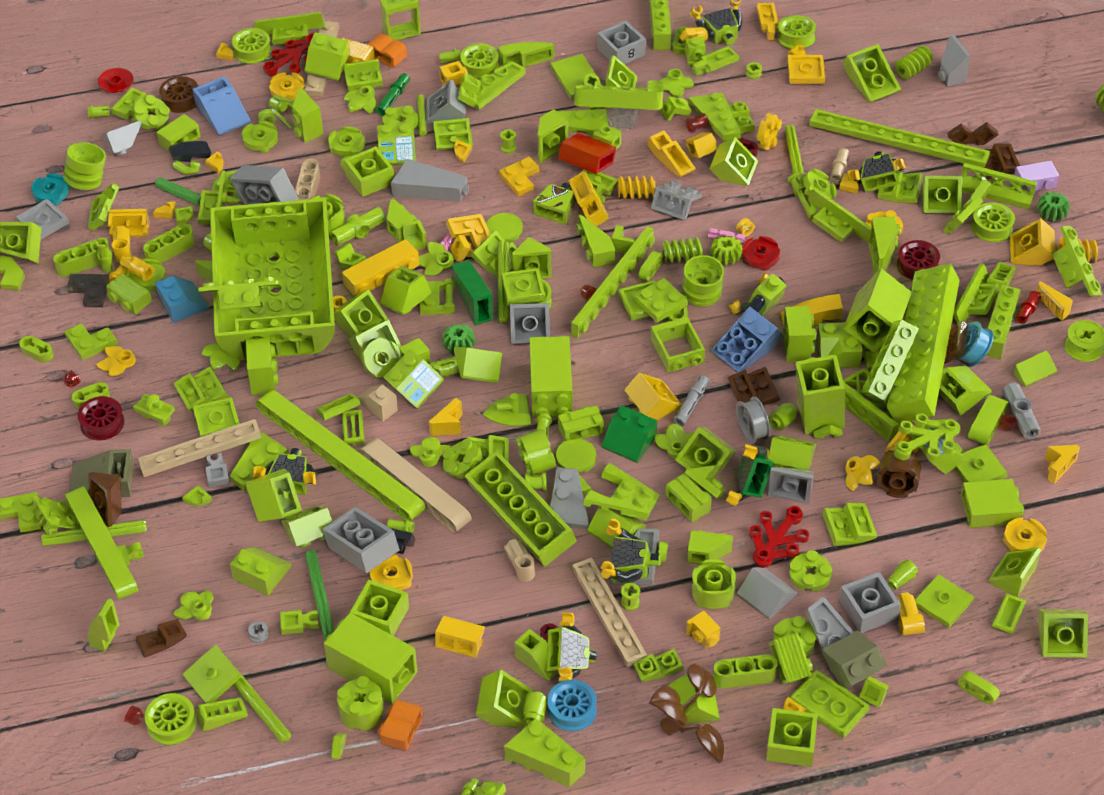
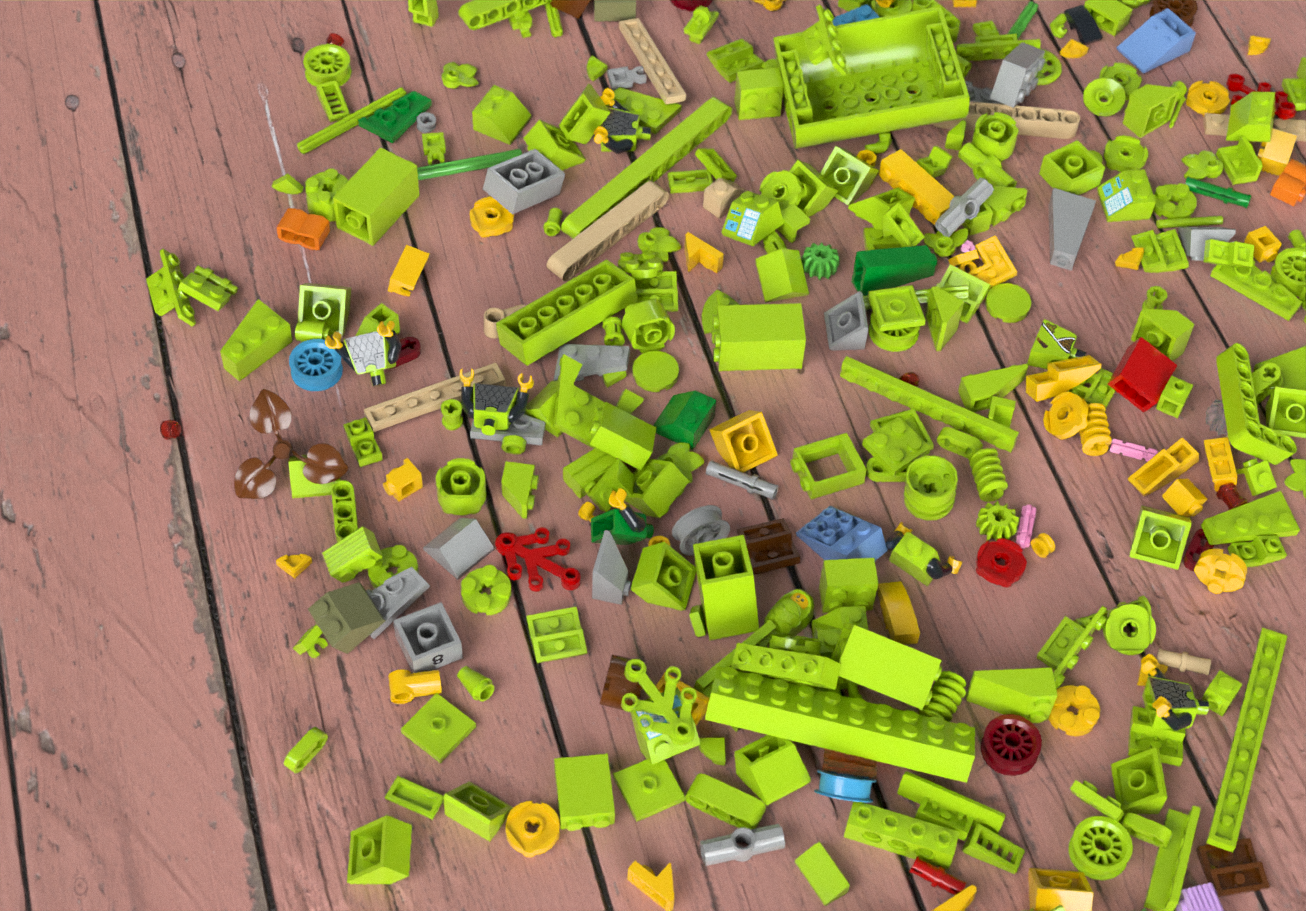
camera: 85 degrees right, 5 degrees up
(161, 639) = (421, 55): reddish brown slope -> none
(165, 211) = (989, 14): yellow tile -> none
(212, 674) = (373, 89): lime plate -> none
(215, 416) = (695, 72): lime plate -> none
(251, 45) = (1270, 63): lime wheel -> none
(251, 655) = (397, 118): none -> green wing
(266, 113) = (1151, 79): lime bush -> none
(282, 145) = (1104, 89): none -> lime dish
(381, 606) = (439, 203): lime slope -> none
(404, 539) = (533, 221): black tile -> none
(416, 234) = (964, 207): none -> light grey piece
(436, 276) = (899, 224): none -> lime slope
(516, 175) = (1102, 312): yellow plate -> none
(544, 421) = (698, 339): lime pin -> none
(581, 423) = (698, 370): lime brick -> none
(585, 119) = (1206, 381): lime wing -> none
(635, 191) = (1075, 420): none -> yellow plate
(654, 167) = (1132, 450): none -> bright pink axle
(662, 466) = (622, 435): none -> lime brick
(668, 121) = (1220, 462): none -> yellow hinge
(674, 199) = (1088, 470): light grey bracket -> none
(792, 737) = (248, 550): lime slope -> none
(793, 149) = (1201, 610): lime axle -> none
(835, 705) = (289, 604): lime tile -> none
(859, 471) = (636, 647): yellow plate -> none
(860, 361) = (796, 644): none -> lime plate
(865, 146) = (1221, 692): none -> lime brick
(981, 135) = (1279, 847): reddish brown tile -> none
(1007, 422) = (720, 821): clear red hinge -> none

